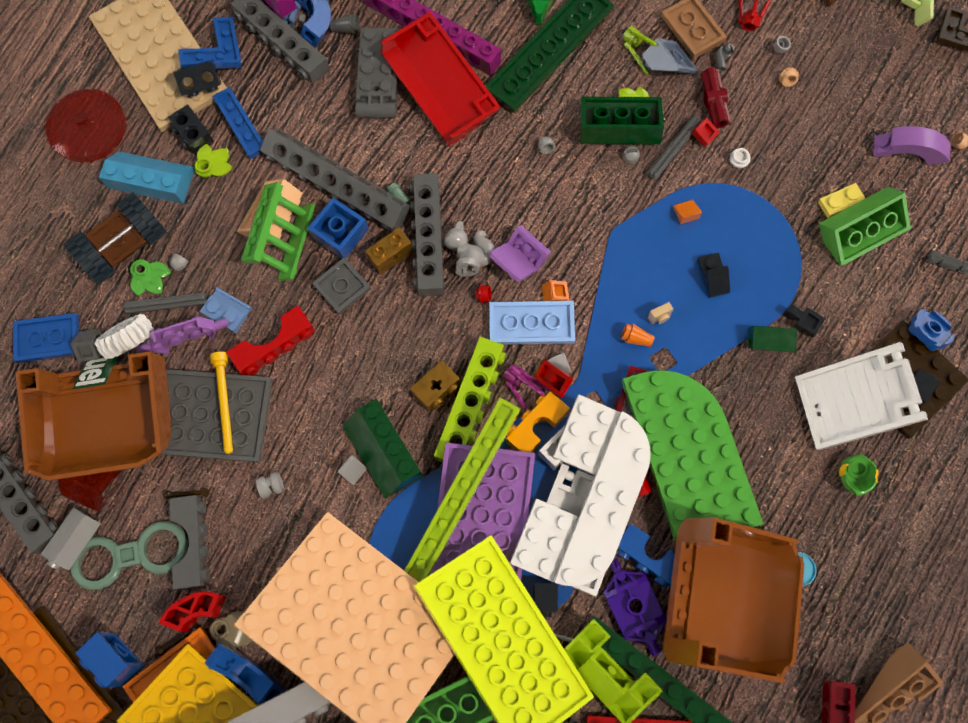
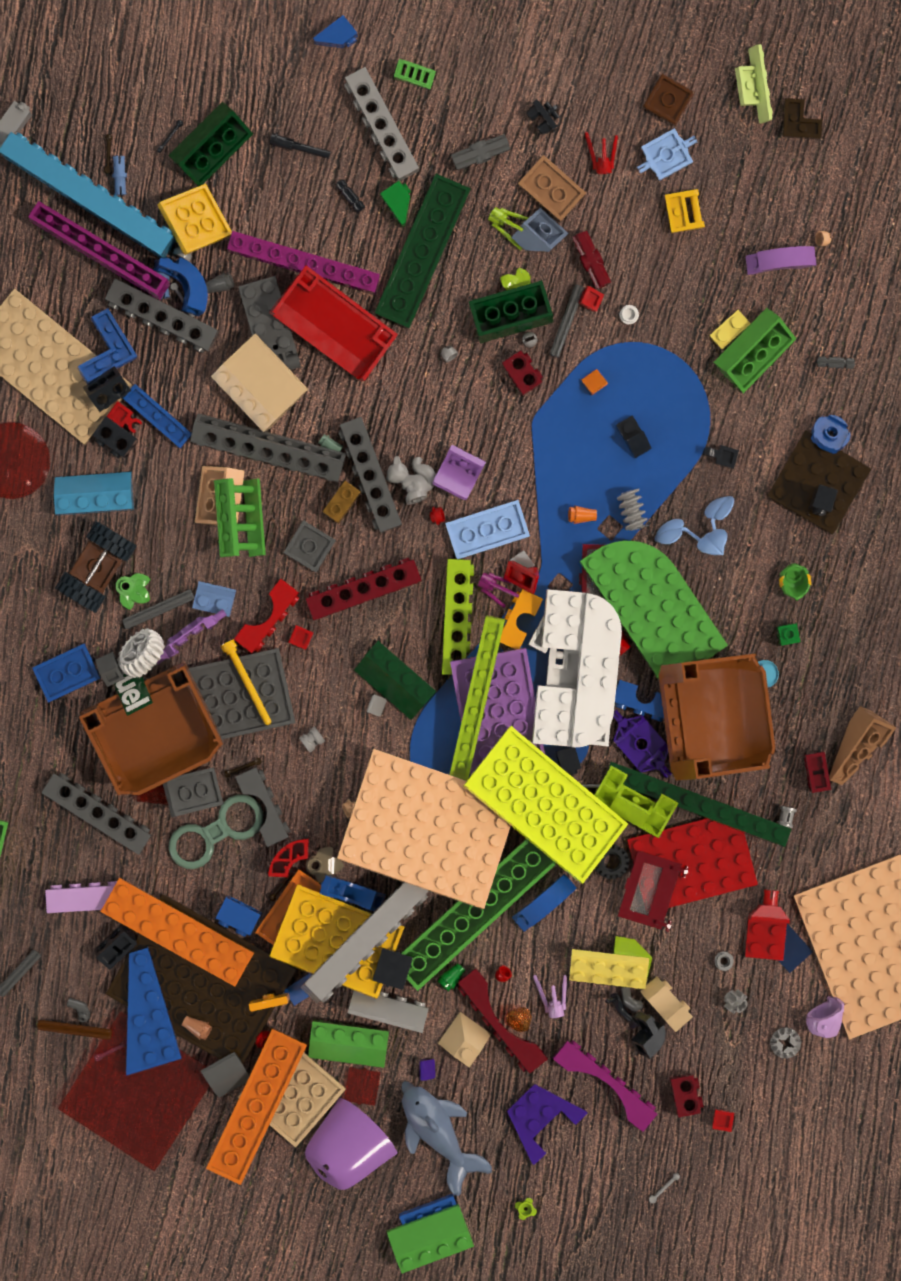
camera: 25 degrees left, 15 degrees up
(70, 539) = (164, 835): light grey brick -> none
(116, 500) = (193, 792): none -> dark grey plate
(178, 262) = (154, 568): light grey hinge -> none
(207, 114) = (122, 415): none -> red plate
(214, 160) = (147, 458): lime plate -> none
(299, 374) = (301, 637): none -> red plate
(338, 228) = (289, 495): blue brick -> none
(348, 115) = (259, 383): none -> tan slope
(390, 351) = (315, 598): none -> dark red brick
(440, 376) = (423, 601): pearl gold brick -> none
(555, 291) = (499, 494): orange slope -> none
(611, 181) = (518, 375): none -> dark red brick
(660, 314) = (597, 489): tan plate -> none
(691, 346) = (632, 510): none -> light grey piece
(722, 55) = (586, 211): dark grey arm -> none
(771, 399) = (712, 542): none -> light blue plant
(772, 339) = (698, 482): dark green hinge -> none
(784, 46) = (642, 182): light grey hinge -> none
(789, 77) = (654, 217): light nougat plate -> none
(814, 79) = (678, 212): none -> yellow plate
(816, 26) = (667, 154): none -> light blue plate
(837, 532) = (788, 634): none -> green brick
(860, 397) = (778, 519): white door -> none

